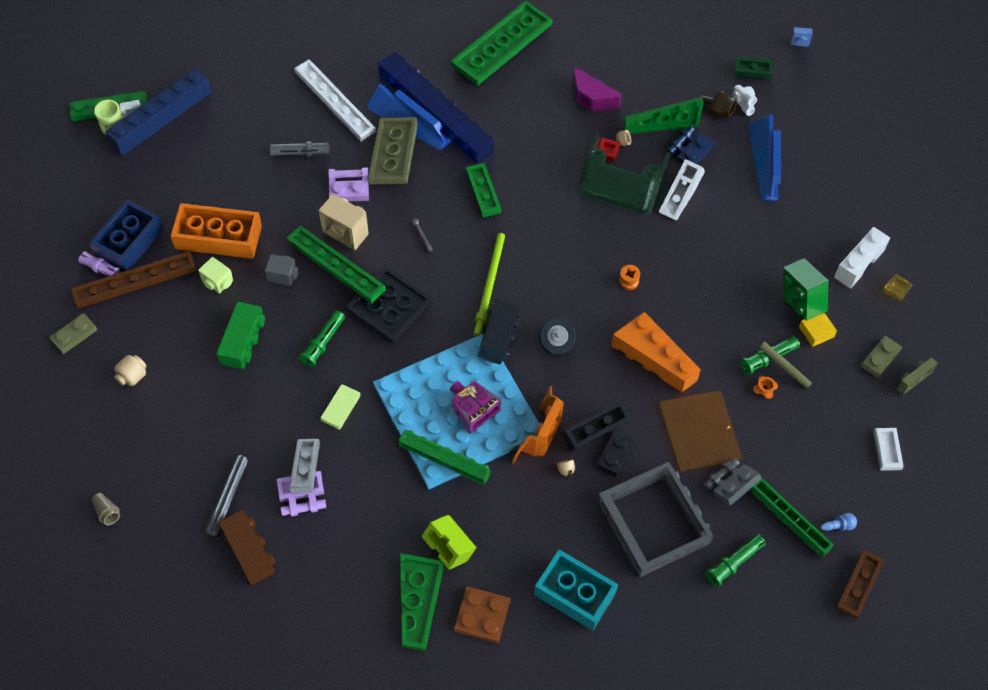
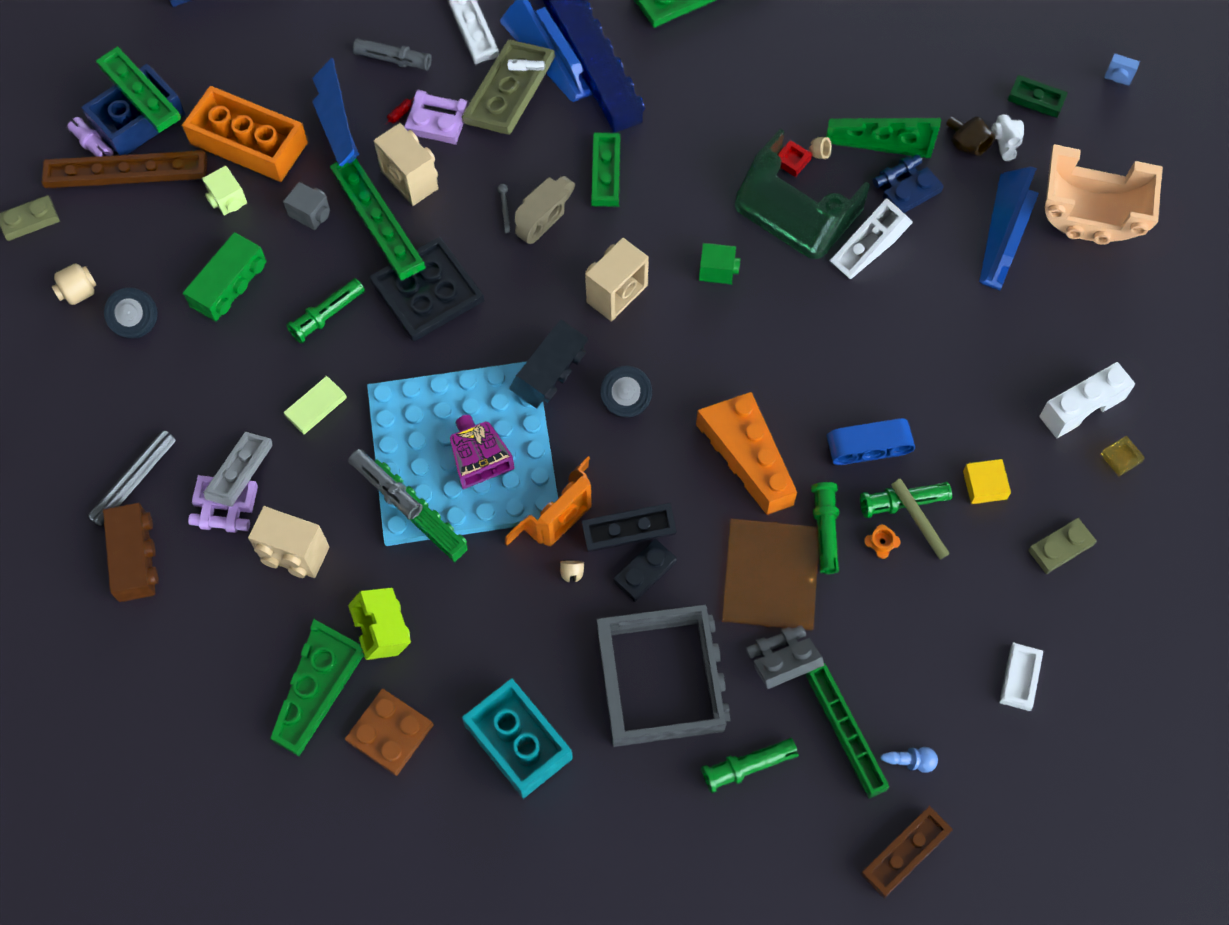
camera: 20 degrees right, 5 degrees up
(130, 218) = (138, 89): none -> green plate
(180, 379) = (130, 313): none -> black wheel
(277, 199) = (332, 114): none -> blue wedge
(320, 187) = (399, 111): none -> red piece
(363, 505) = (289, 543): none -> tan brick
(401, 132) = (524, 65): none -> white pin
(427, 447) = (393, 492): none -> dark grey pin
(450, 228) = (542, 208): none -> dark tan piece
(482, 316) = (539, 335): lime bar -> none
(522, 261) = (616, 279): none -> tan brick
(585, 233) = (718, 263): none -> green brick
(593, 93) = (803, 76): magenta slope -> none
(626, 281) = (749, 343): orange wheel -> none
(722, 380) = (826, 514): none -> green pin
(733, 324) = (870, 441): none -> blue beam
(805, 289) = (984, 422): green brick -> none
(823, 127) = (1100, 203): none -> light nougat cylinder
(920, 372) = (1108, 584): olive plate -> none

